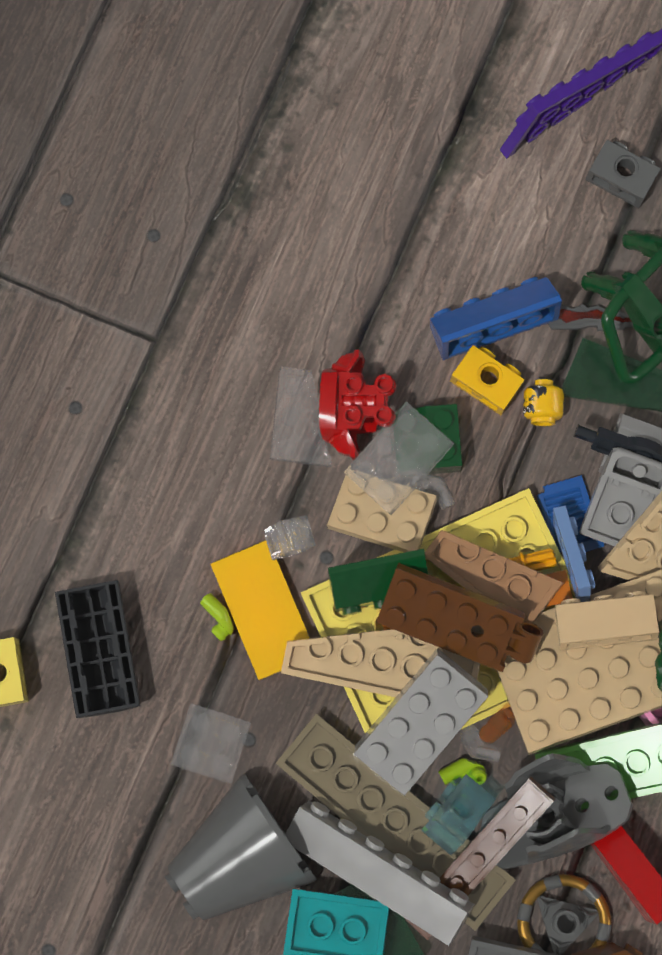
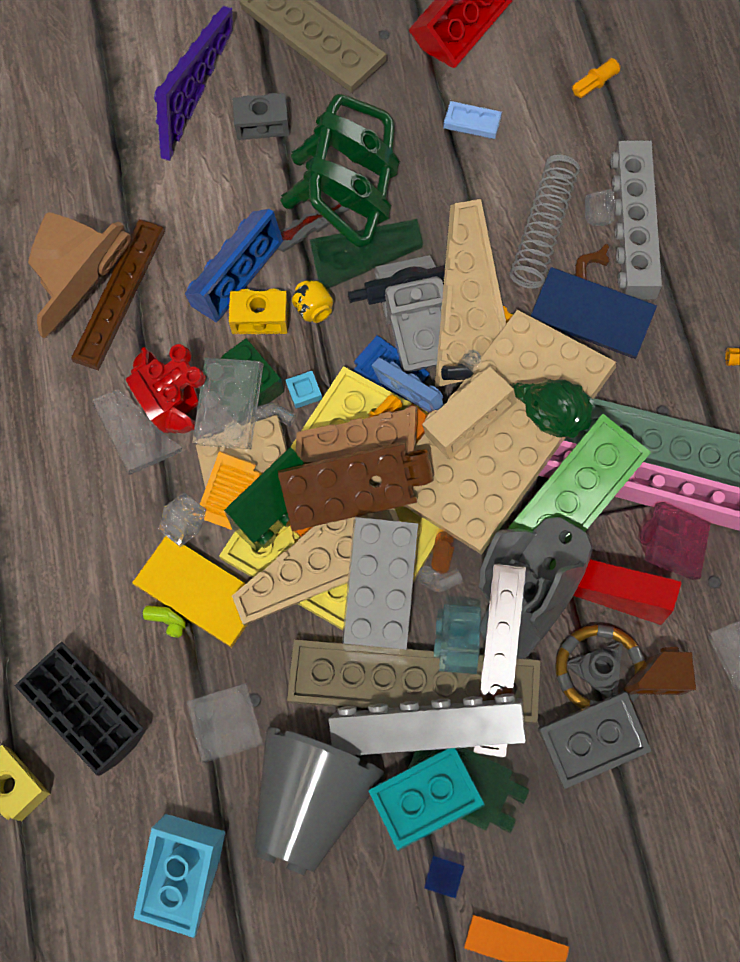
camera: 30 degrees left, 10 degrees down
(92, 846) = (178, 874): none -> medium azure slope
(342, 220) = (71, 263): none -> medium nougat piece
(348, 537) = (227, 481): none -> light orange window
(371, 270) = (118, 295): none -> reddish brown tile
(461, 768) = (436, 607): lime arm -> none
(478, 484) = (303, 389): none -> medium azure plate
(634, 571) = (465, 367): none -> arm

